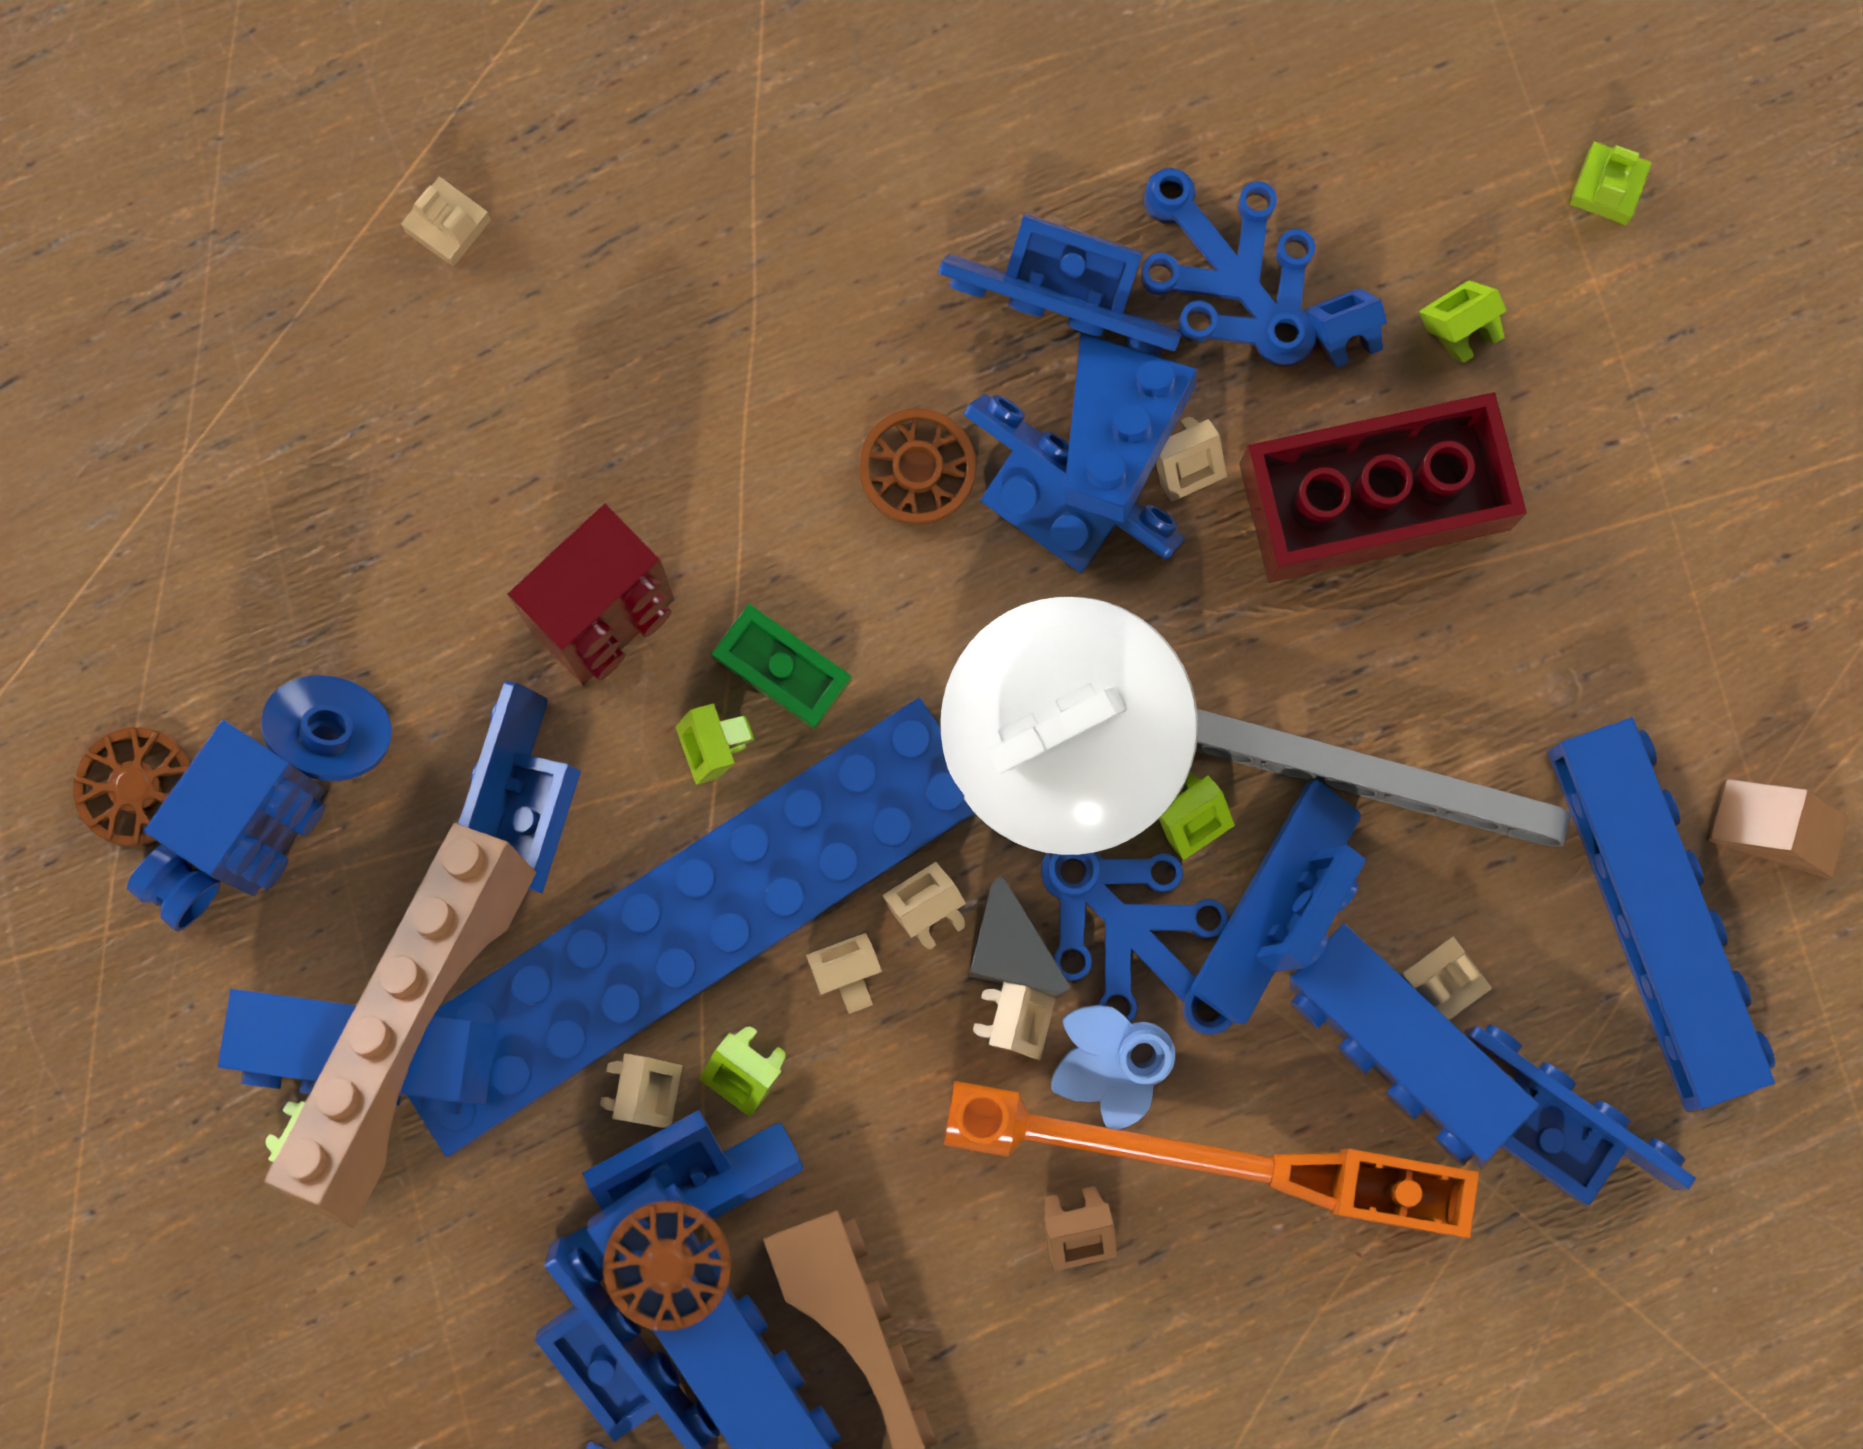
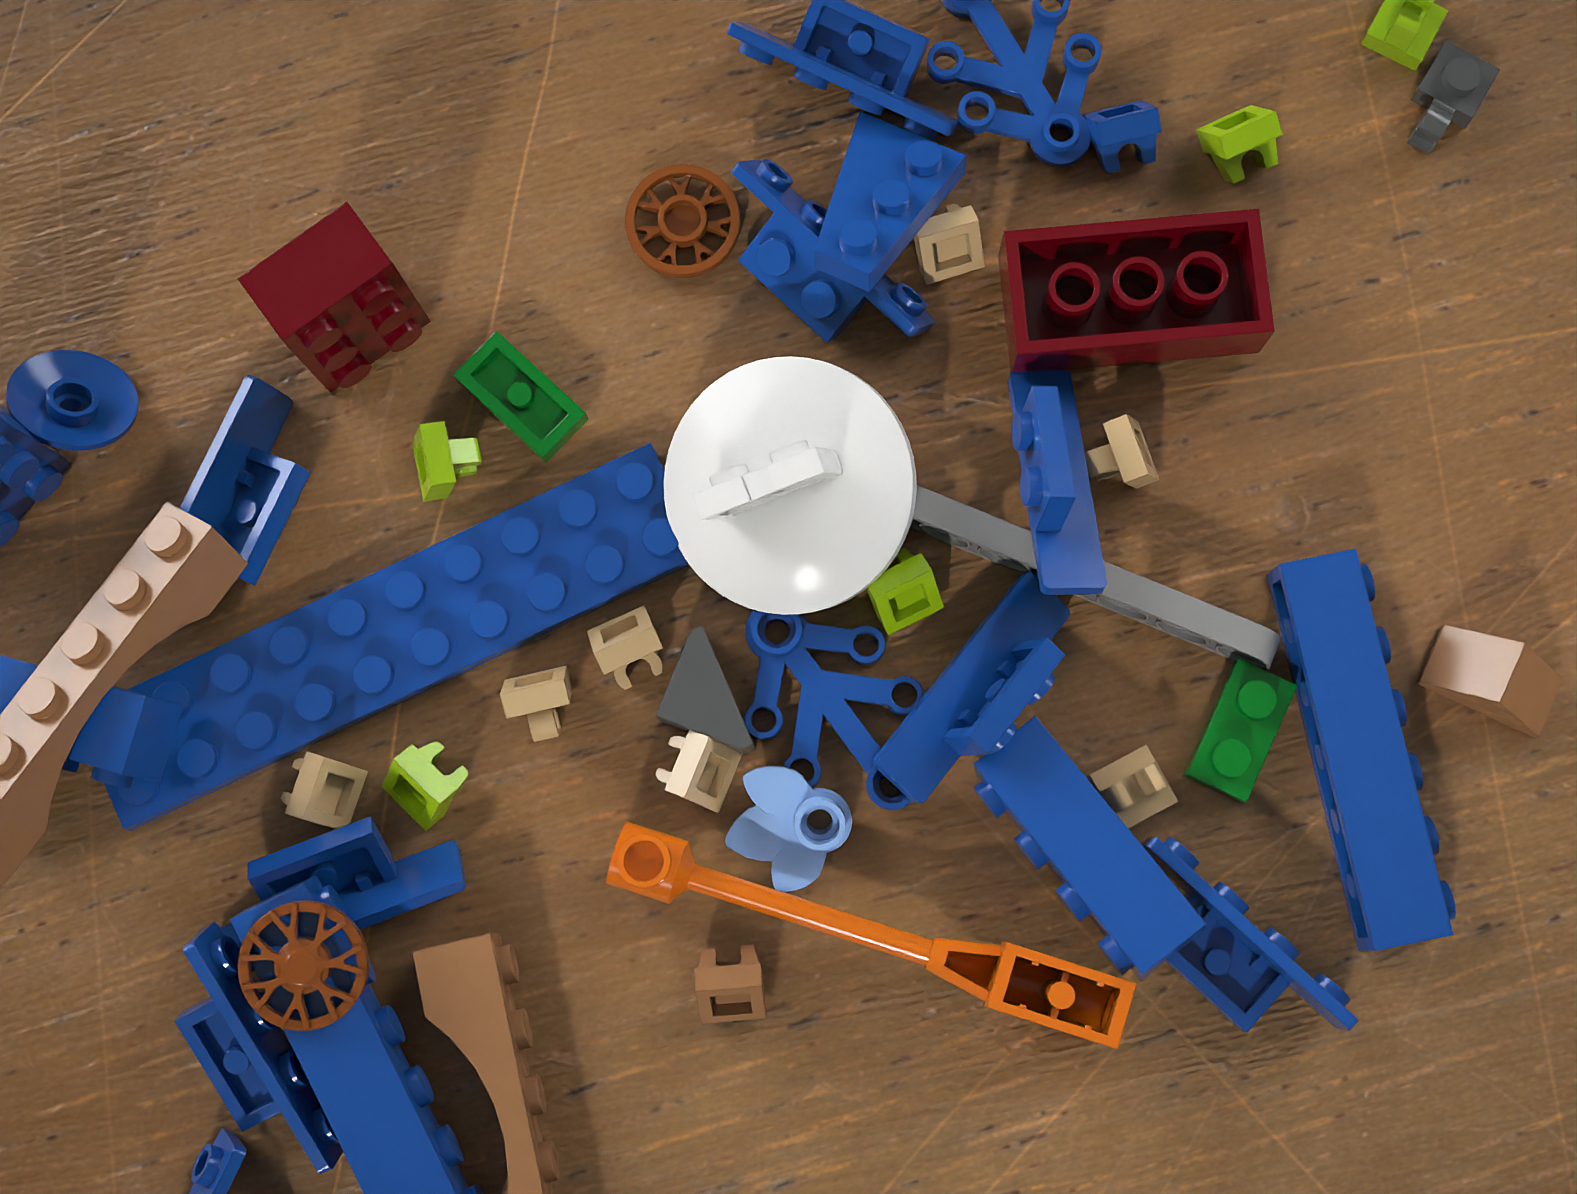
camera: 20 degrees right, 0 degrees up
(1331, 688) = (1056, 483): none -> blue bracket
(1394, 650) = (1124, 454): none -> tan tile
(1542, 910) = (1240, 731): none -> green plate
(1665, 244) = (1451, 93): none -> dark grey plate

